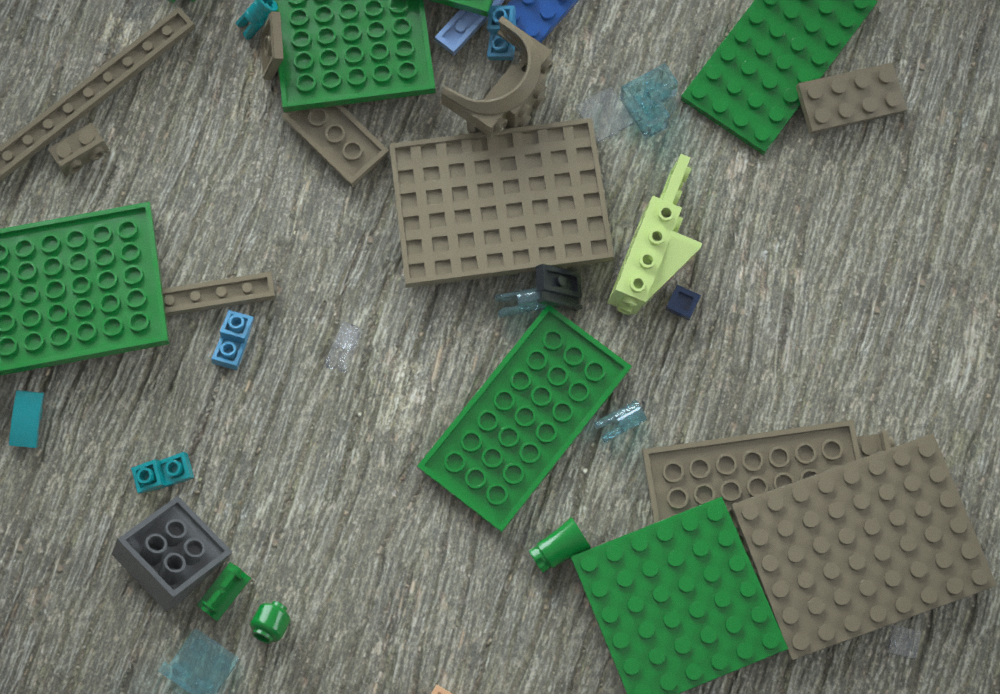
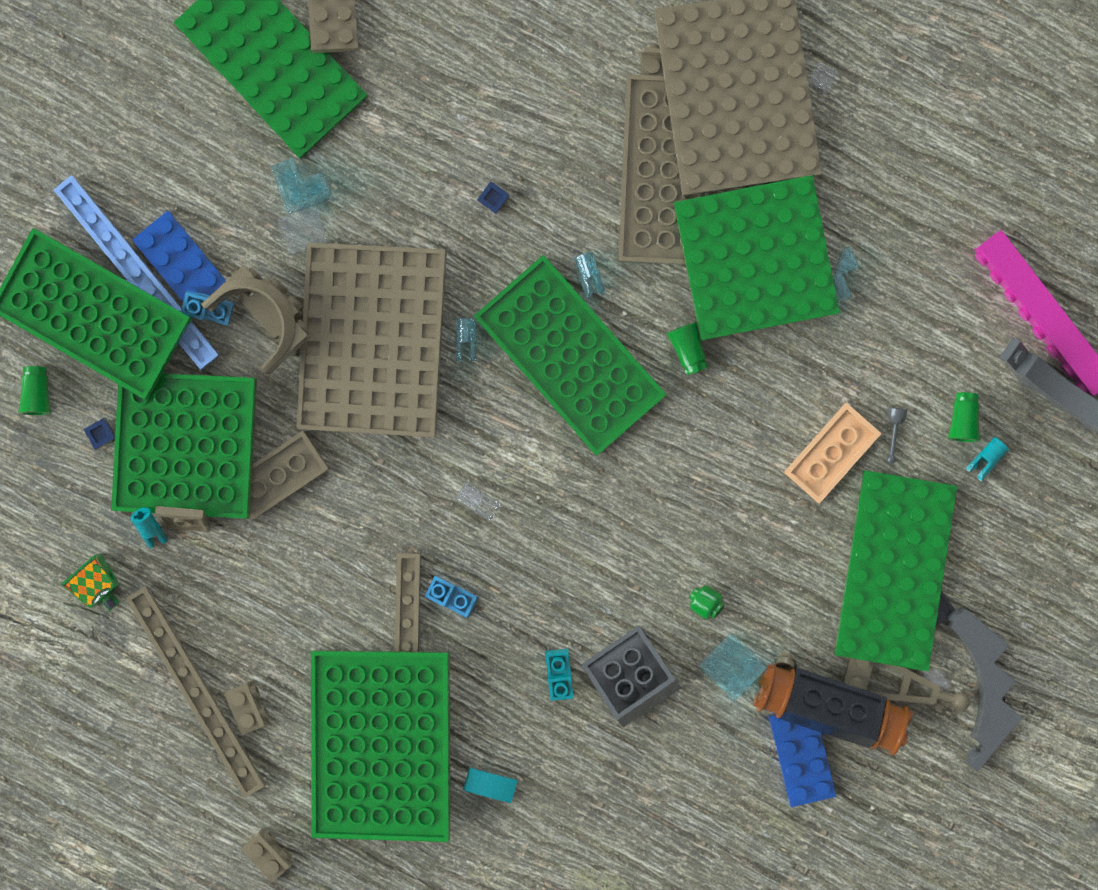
camera: 80 degrees left, 15 degrees up
(223, 591) = (671, 637): green hinge -> none
(558, 287) = (461, 303): black plate -> none
(656, 248) = (445, 214): yellowish green wedge -> none

